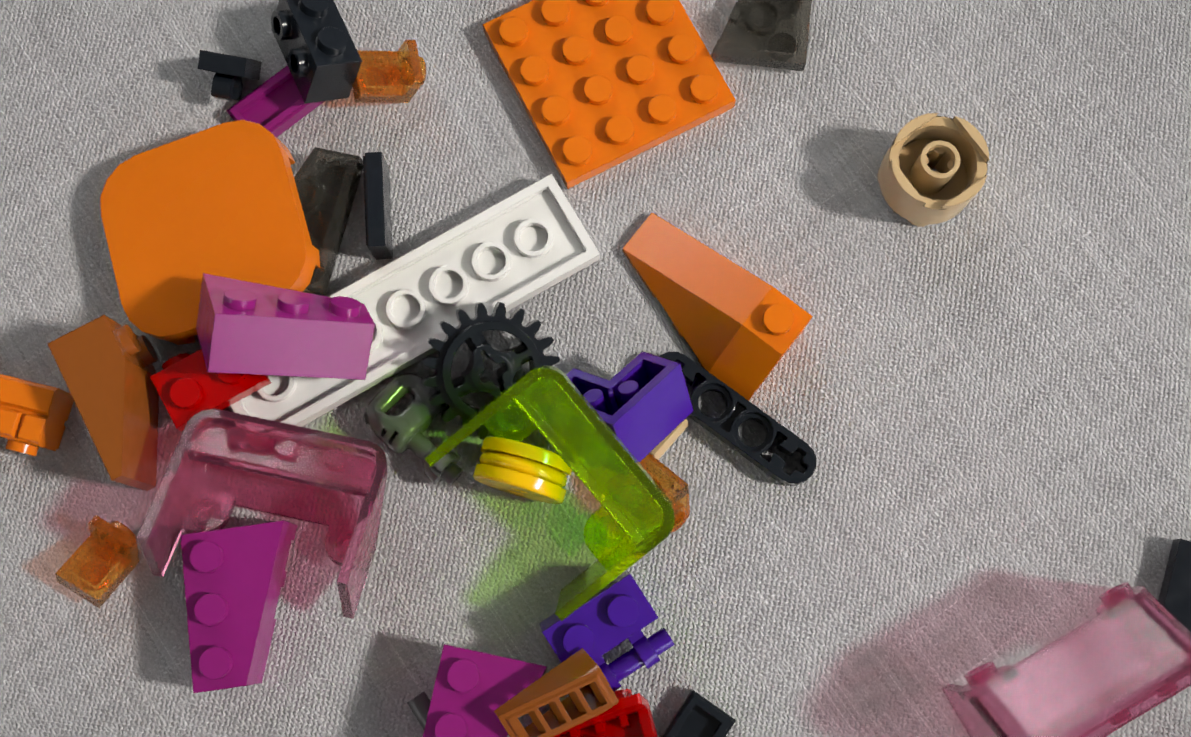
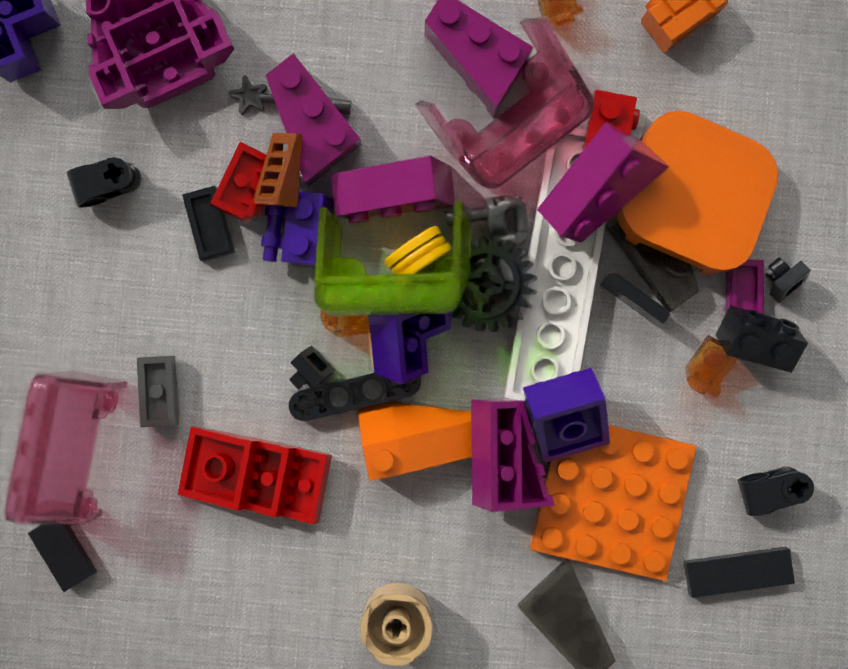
camera: 125 degrees right, 10 degrees up
(113, 390) = (641, 69): dark orange slope -> none
(474, 563) = (393, 189): none -> magenta wedge
(561, 171) = (567, 414): none -> dark purple slope
(664, 199) = (504, 458): none -> magenta wedge
(748, 488) = (310, 368): none -> black tile
(916, 454) = (254, 475): none -> red slope
(922, 640) = (157, 391): none -> dark grey plate

